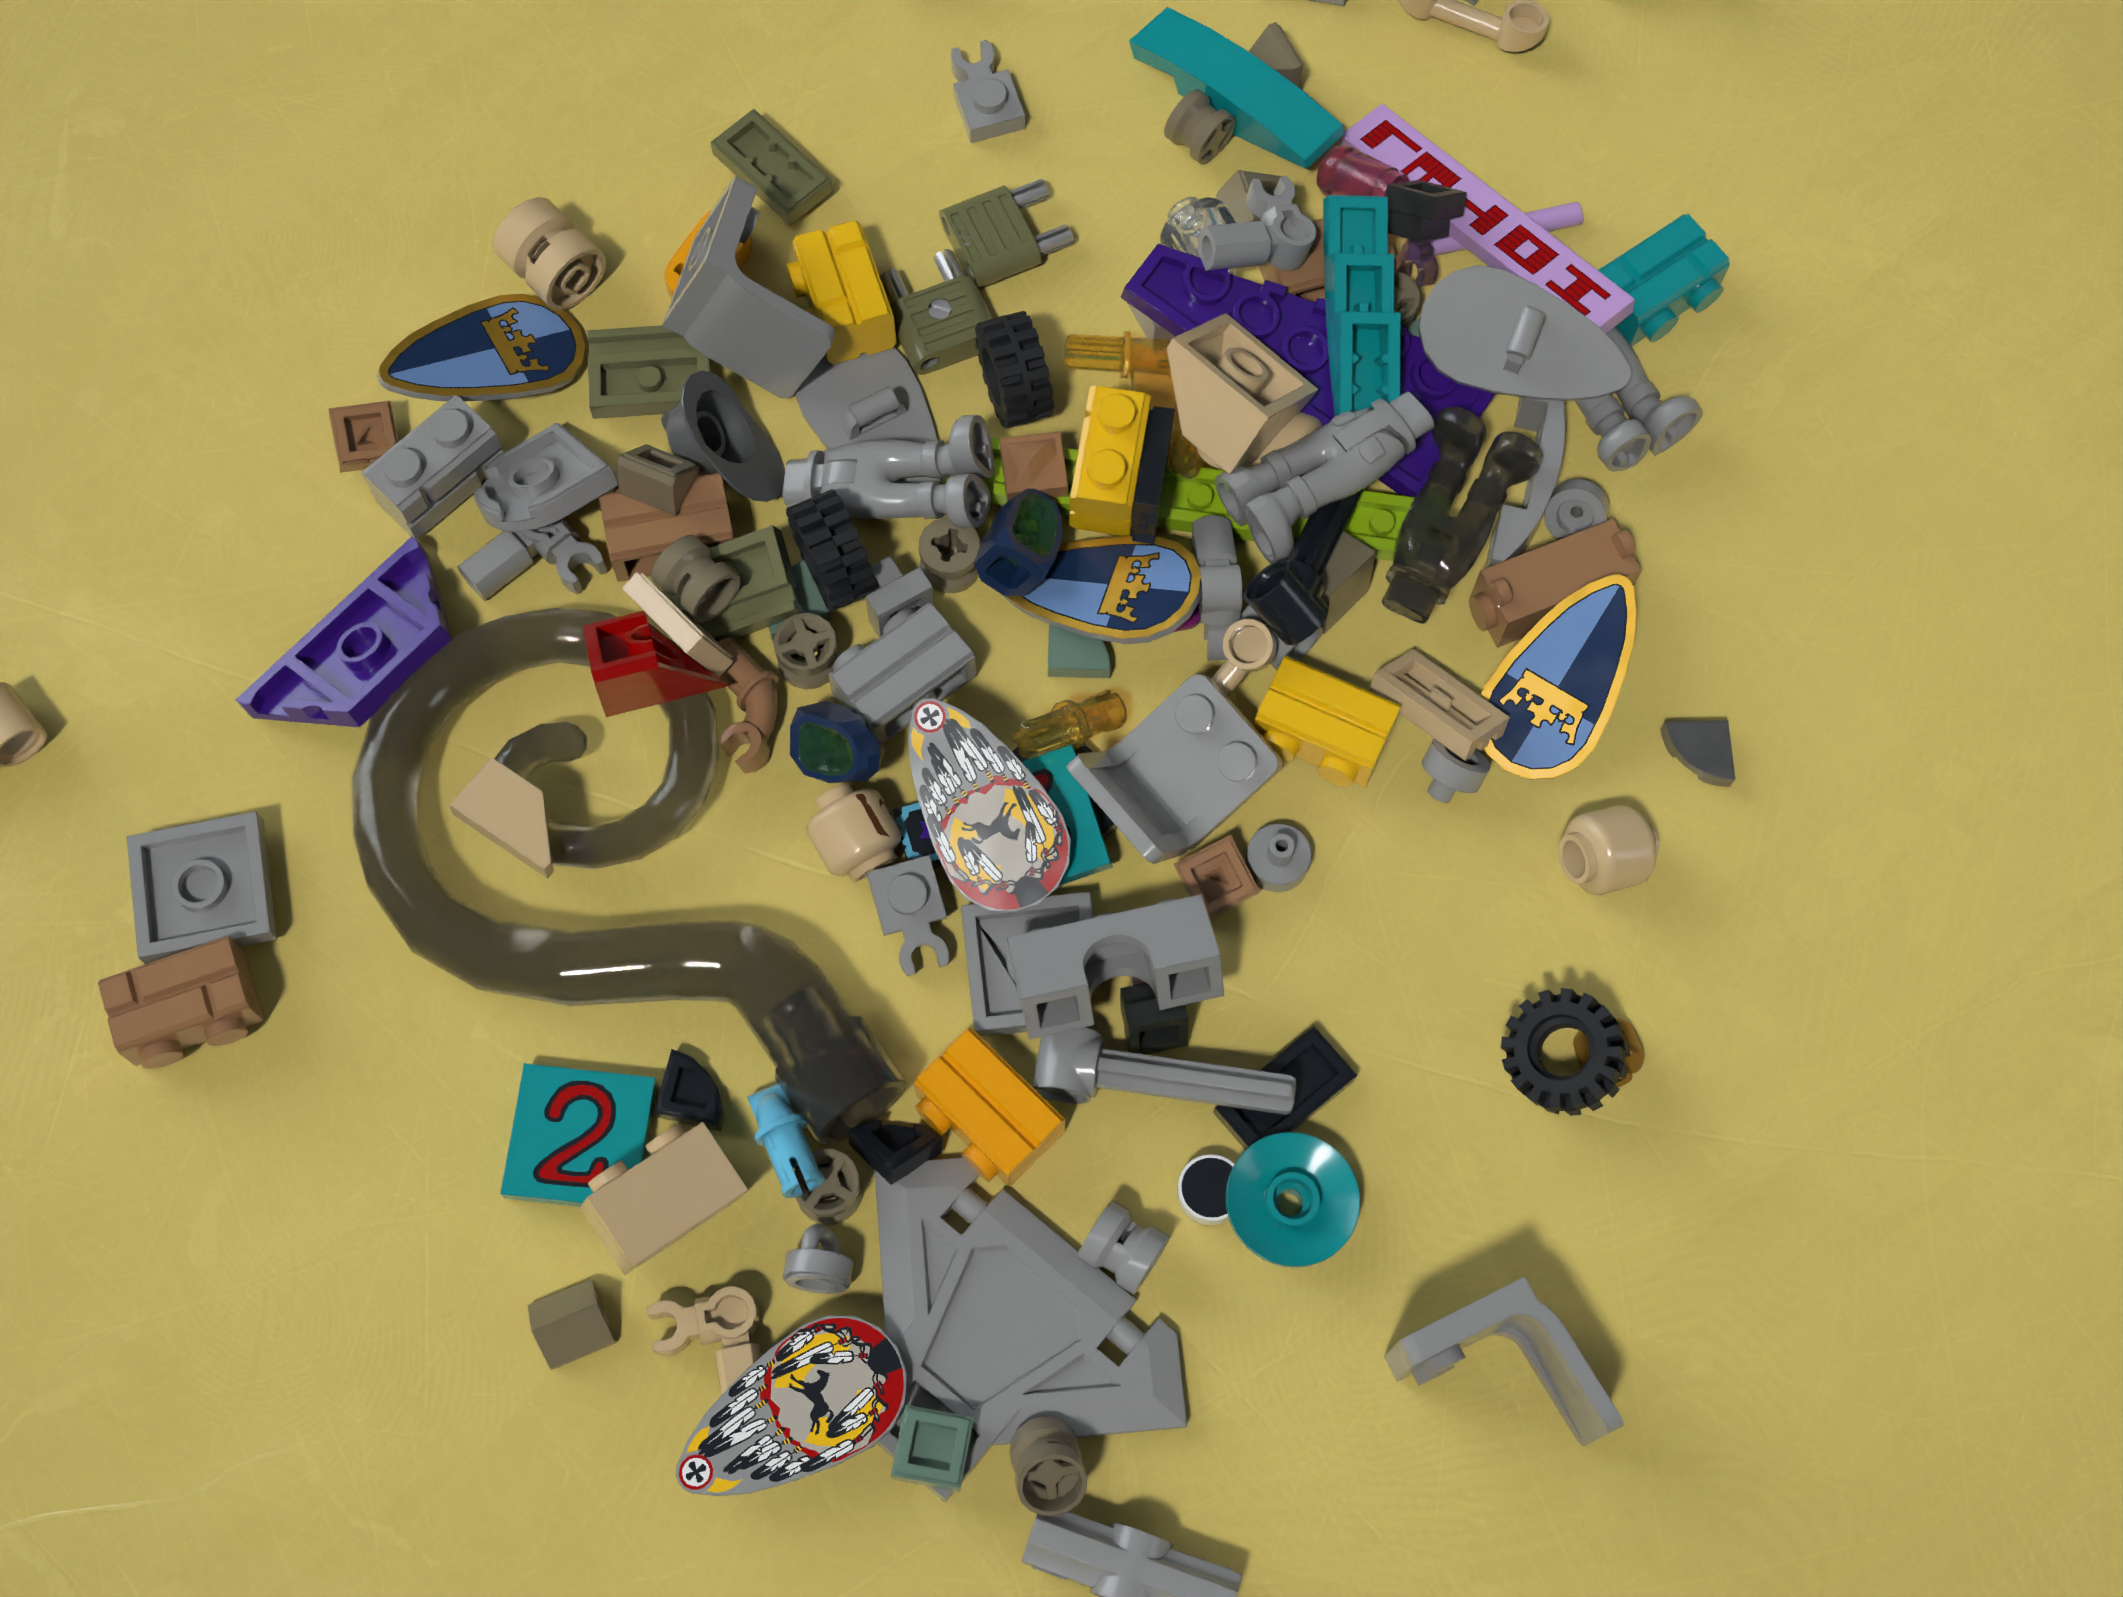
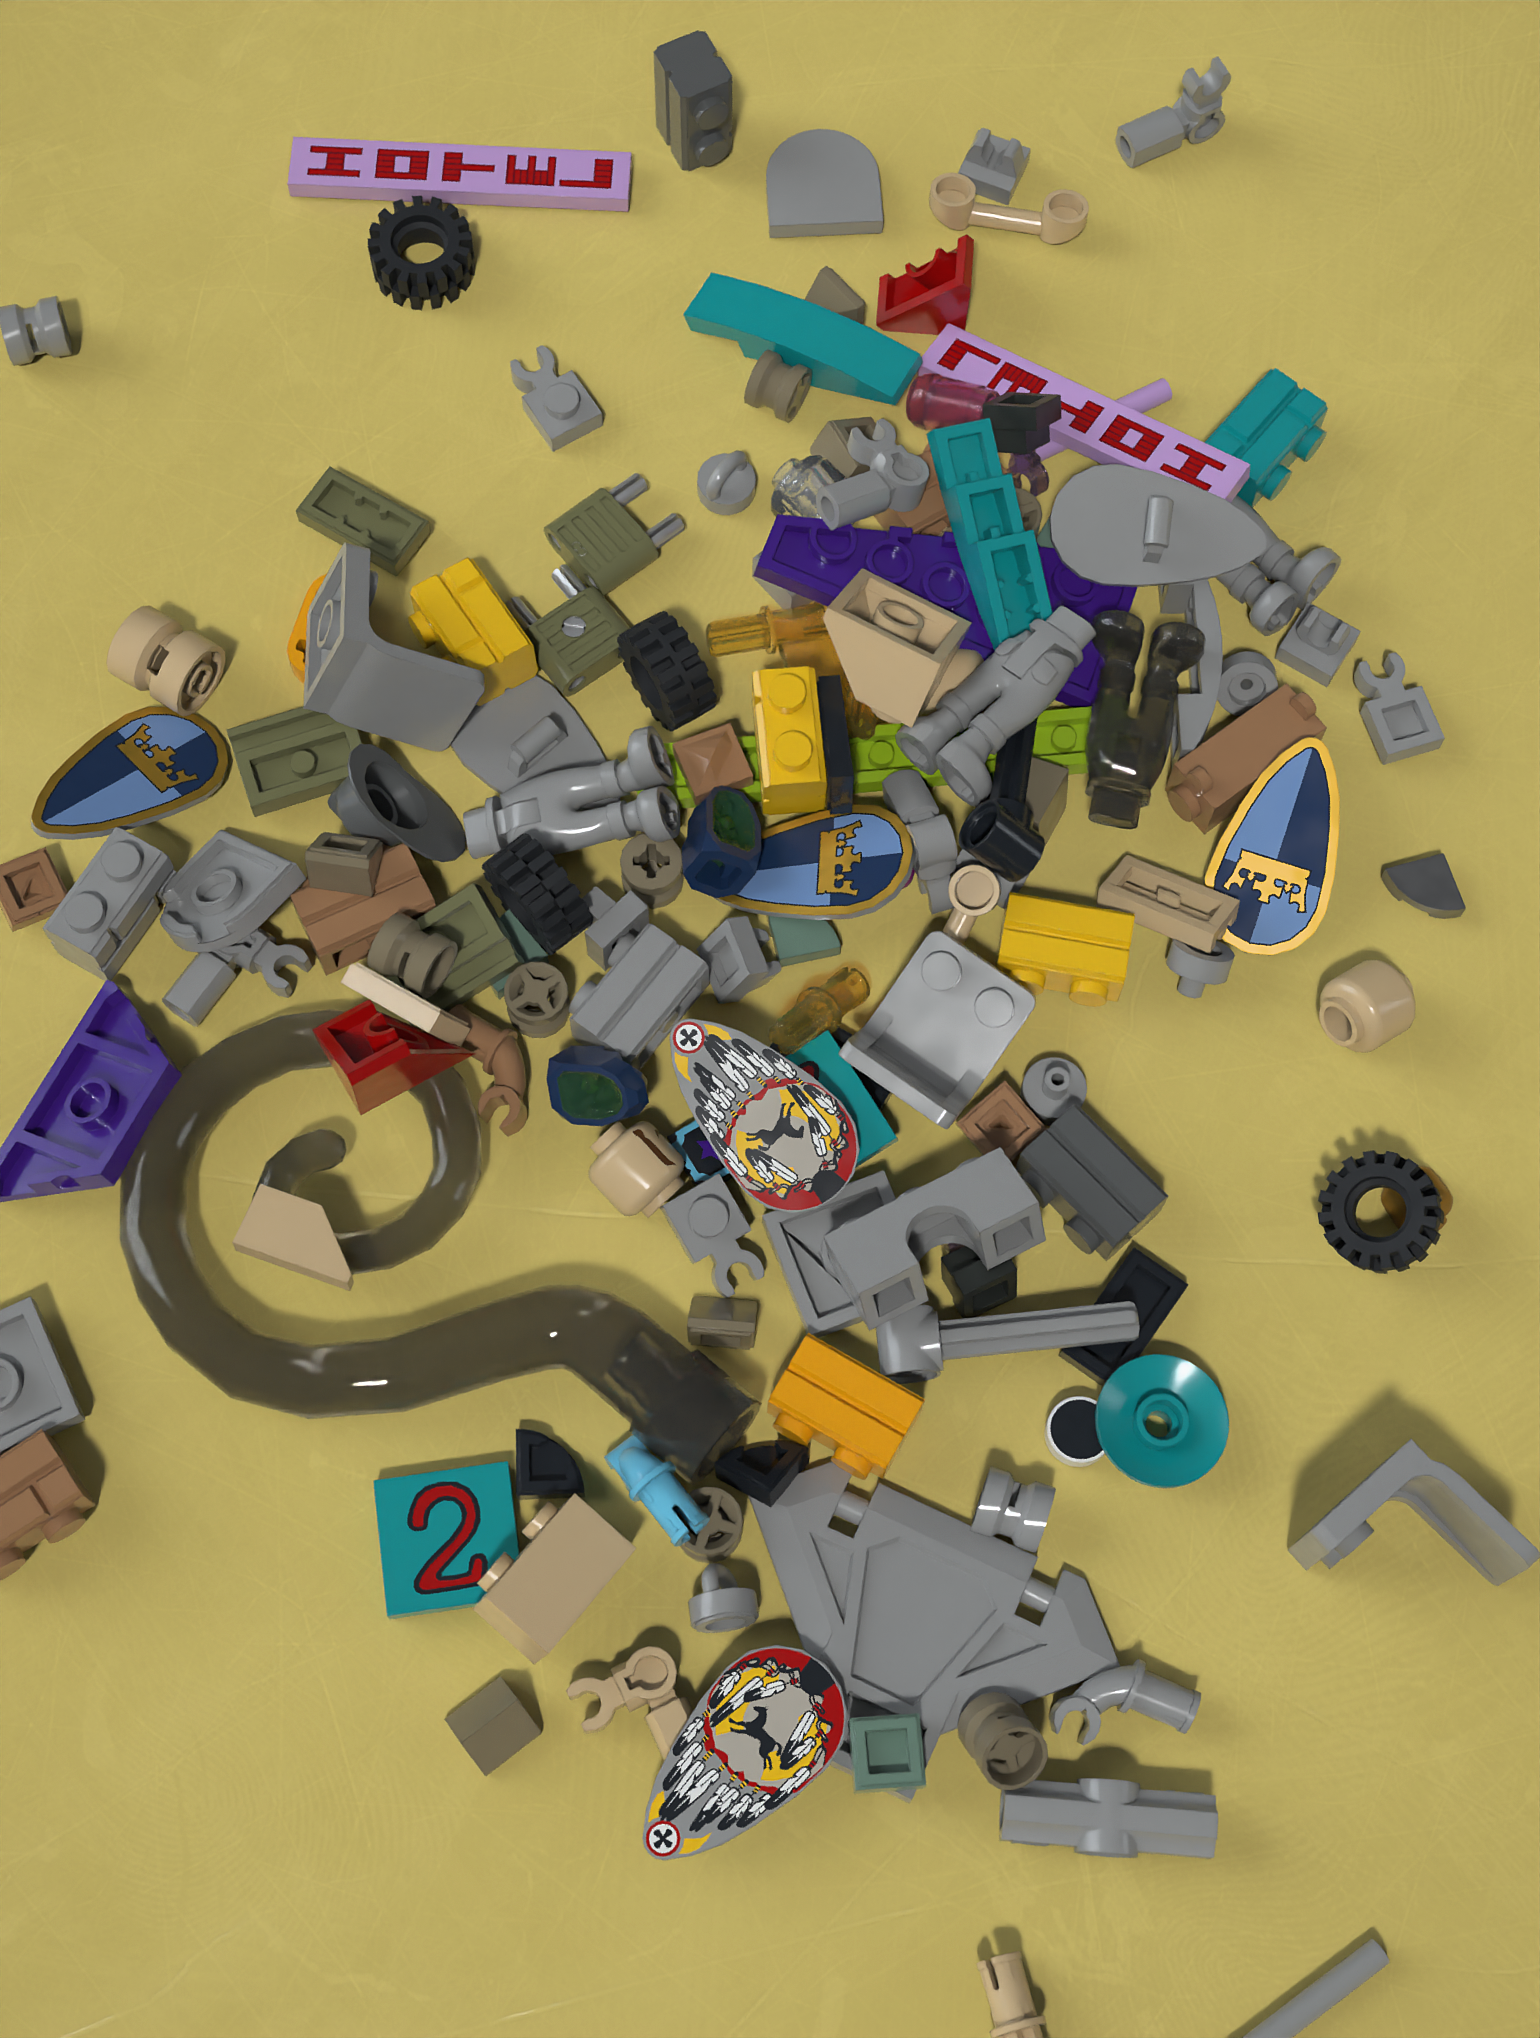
camera: 15 degrees left, 0 degrees up
(895, 998) = (722, 1322): none -> dark tan slope
(1004, 658) = (737, 959): none -> light grey tile
(1126, 208) = (726, 483): none -> light grey tile
(1188, 1449) = (1127, 1688): none -> light grey piece
(1286, 954) = (1090, 1184): none -> dark grey brick
(1373, 71) = (928, 294): none -> red slope
(1659, 491) = (1317, 644): none -> light grey tile
(1716, 579) = (1396, 718): none -> light grey plate

